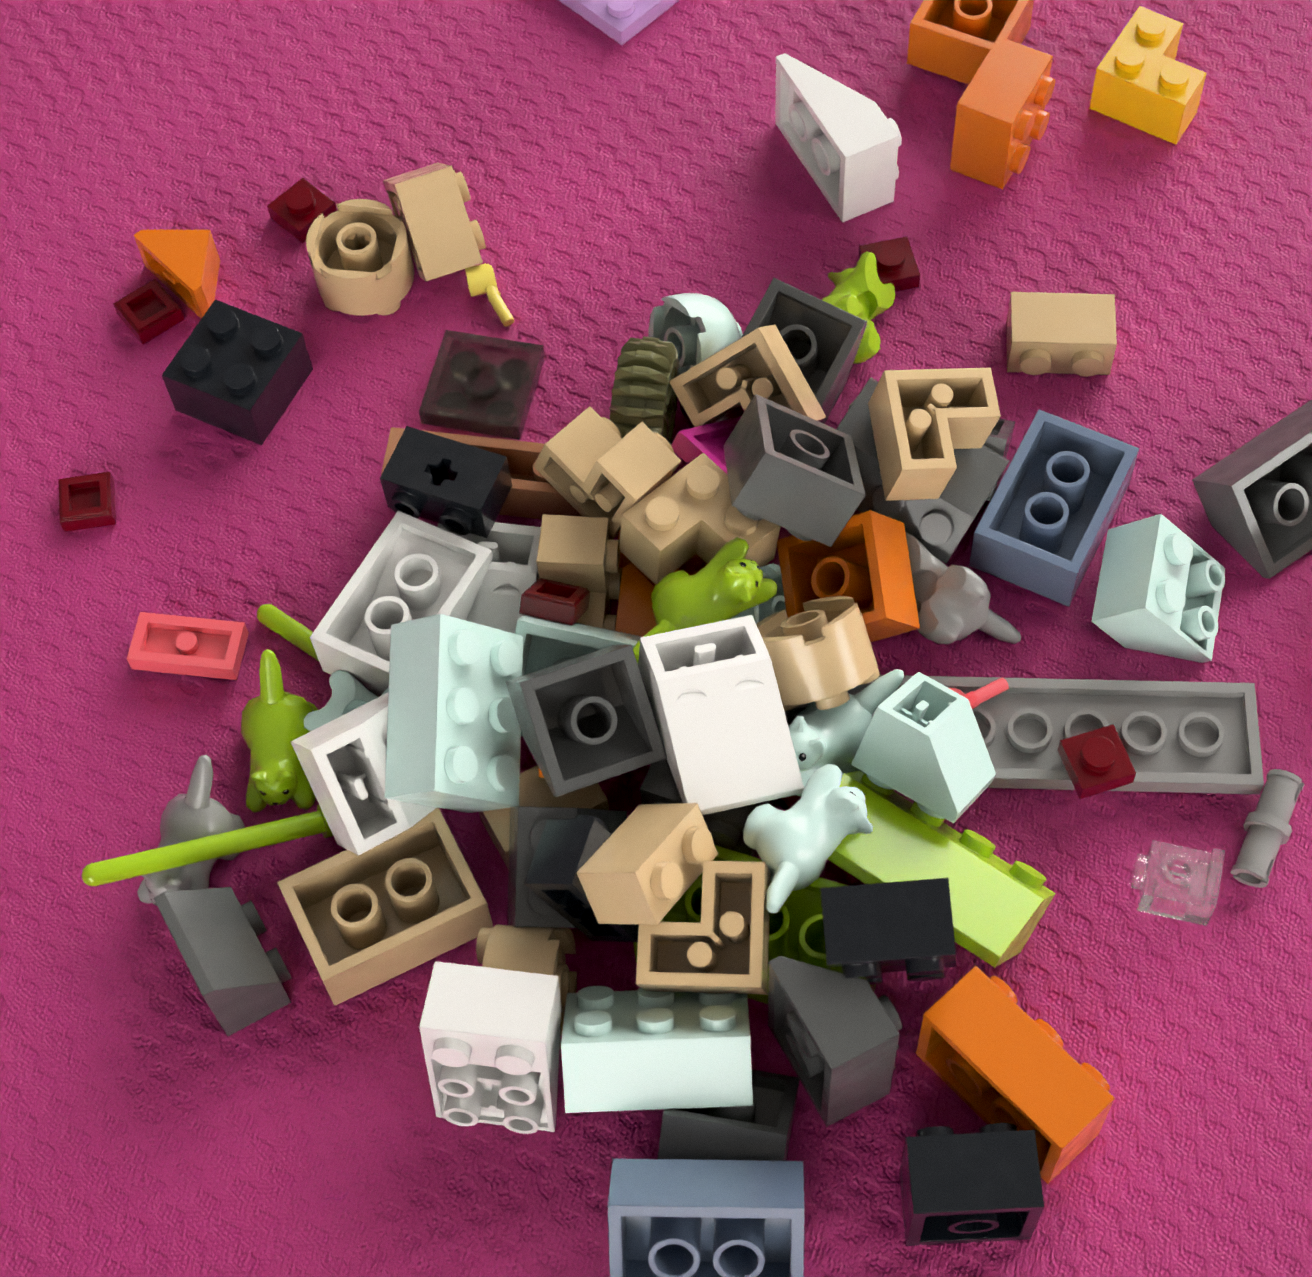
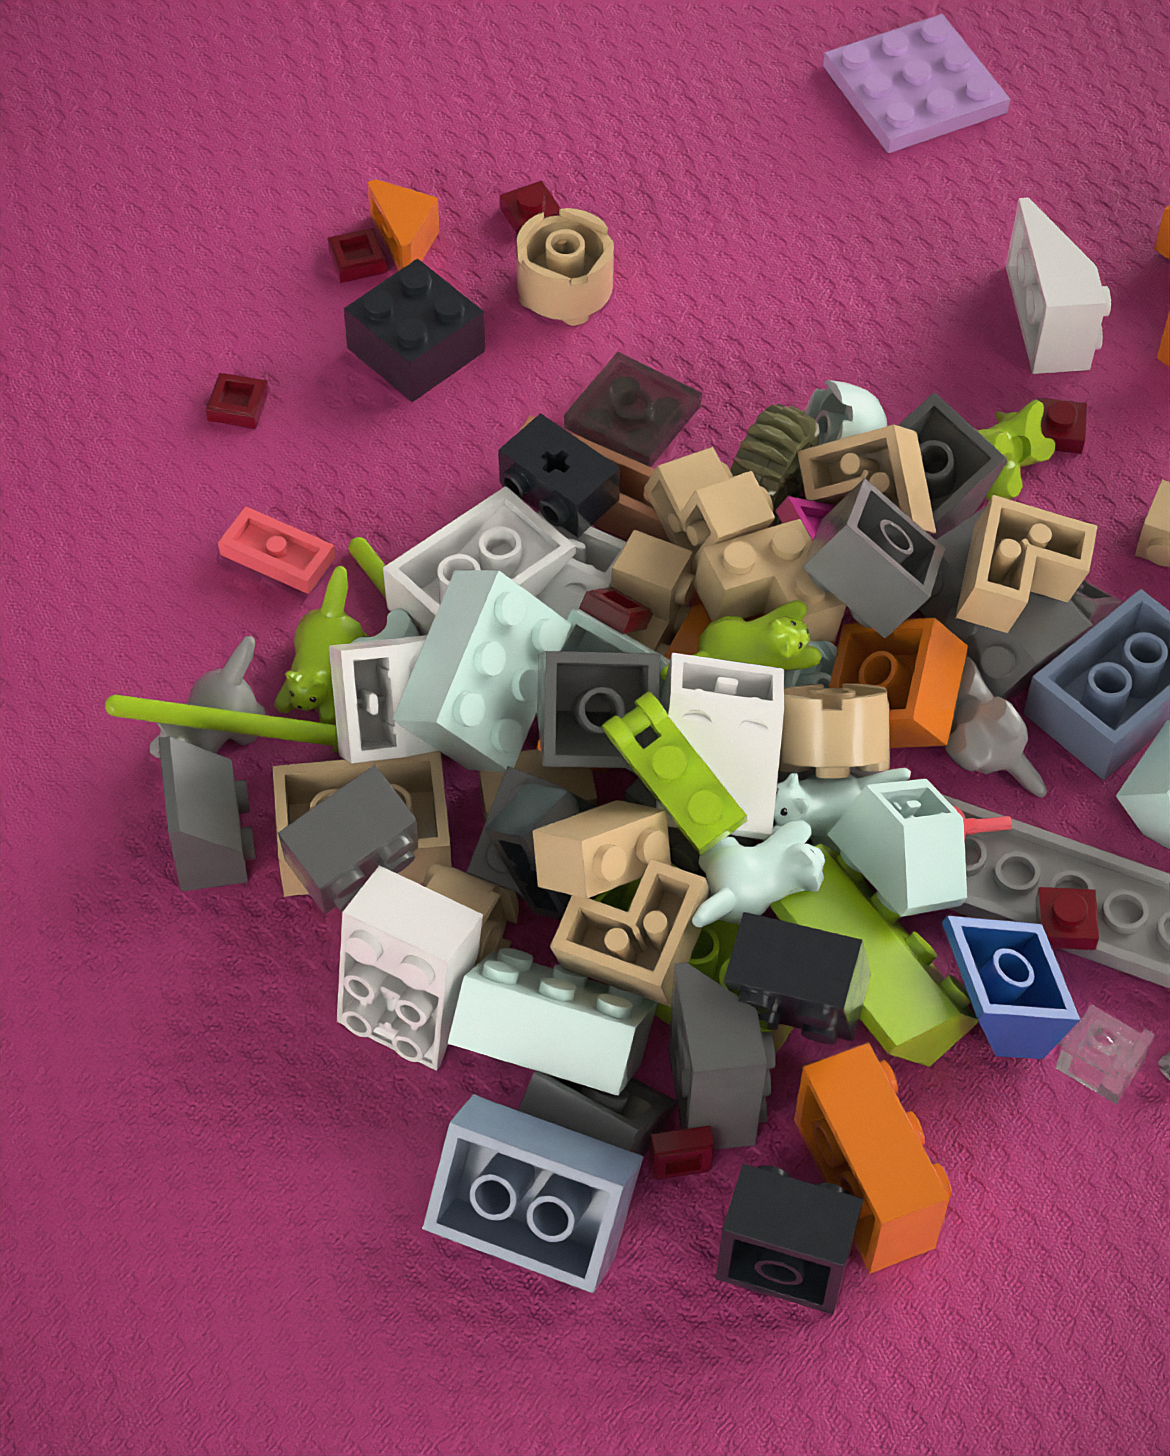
camera: 15 degrees right, 5 degrees down
(393, 941) = (348, 837): none -> dark grey brick
(436, 219) = (646, 252): tan brick -> none
(482, 281) = (669, 321): light yellow hand -> none
(693, 763) = (676, 775): none -> lime plate
(827, 1133) = (681, 1152): none -> dark red tile
(1077, 847) = (1012, 984): none -> blue slope

